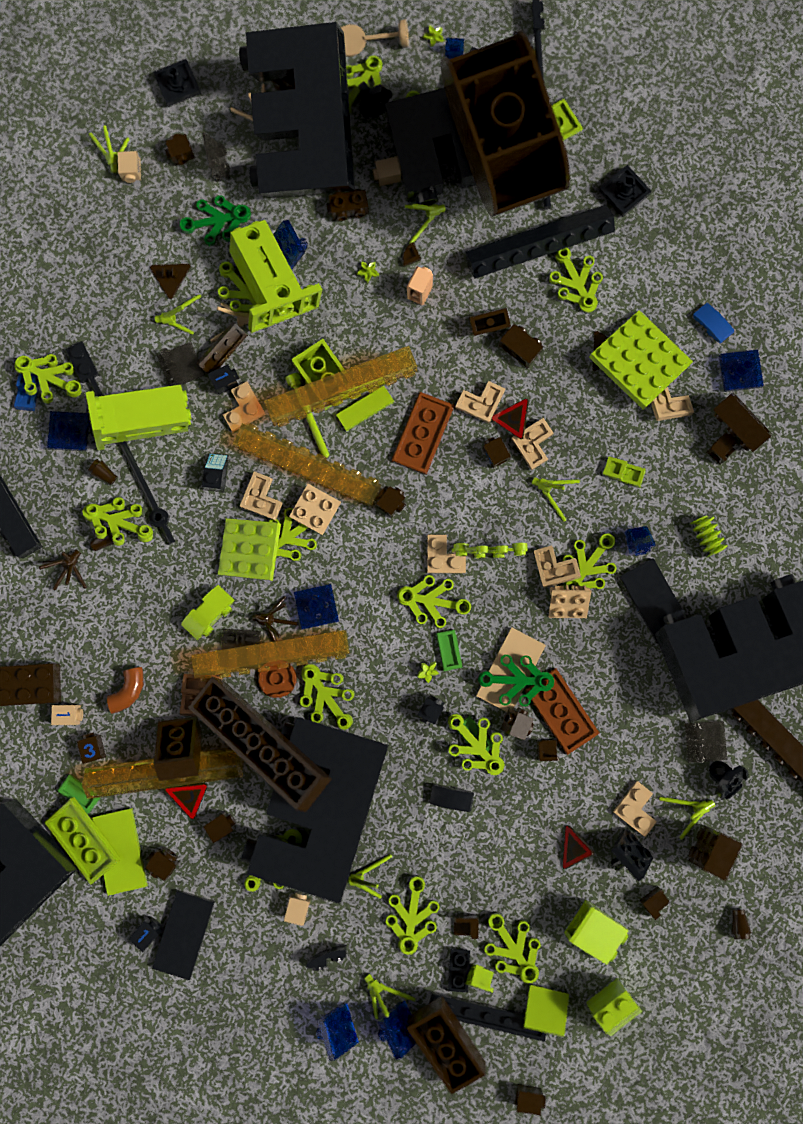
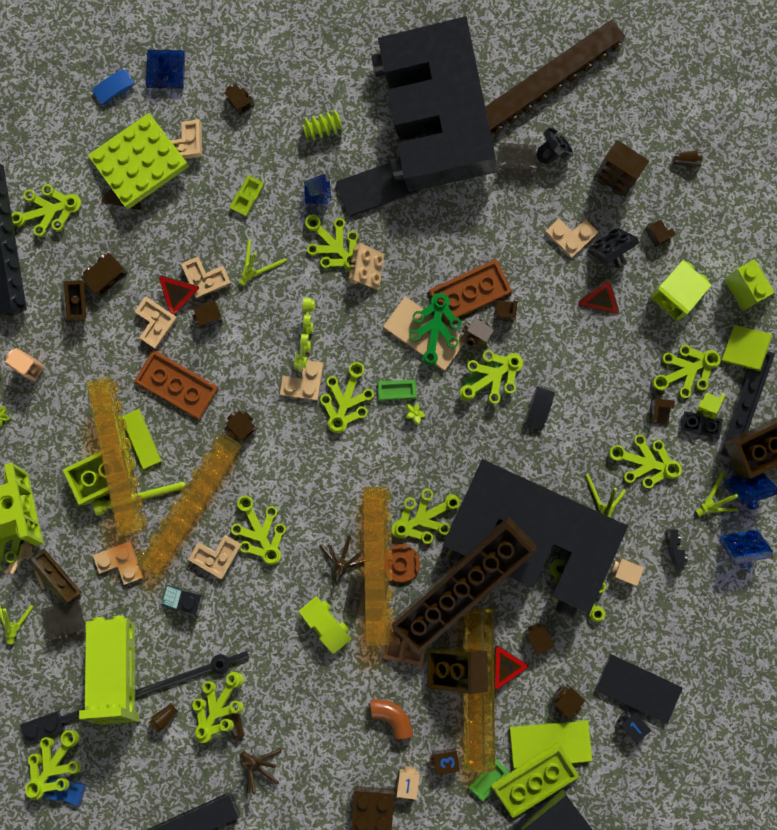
camera: 90 degrees left, 0 degrees up
(61, 430) = (112, 751): clear blue plate -> none
(224, 379) = (86, 578): black brick -> none
(249, 549) = (267, 574): lime plate -> none
(315, 509) = (237, 502): tan hinge -> none
(316, 606) = (323, 505): clear blue plate -> none
(431, 710) = (453, 415): black brick -> none
(553, 572) = (336, 277): tan plate -> none
(699, 809) = (579, 178): lime plant -> none
(742, 422) = (217, 75): dark brown brick -> none

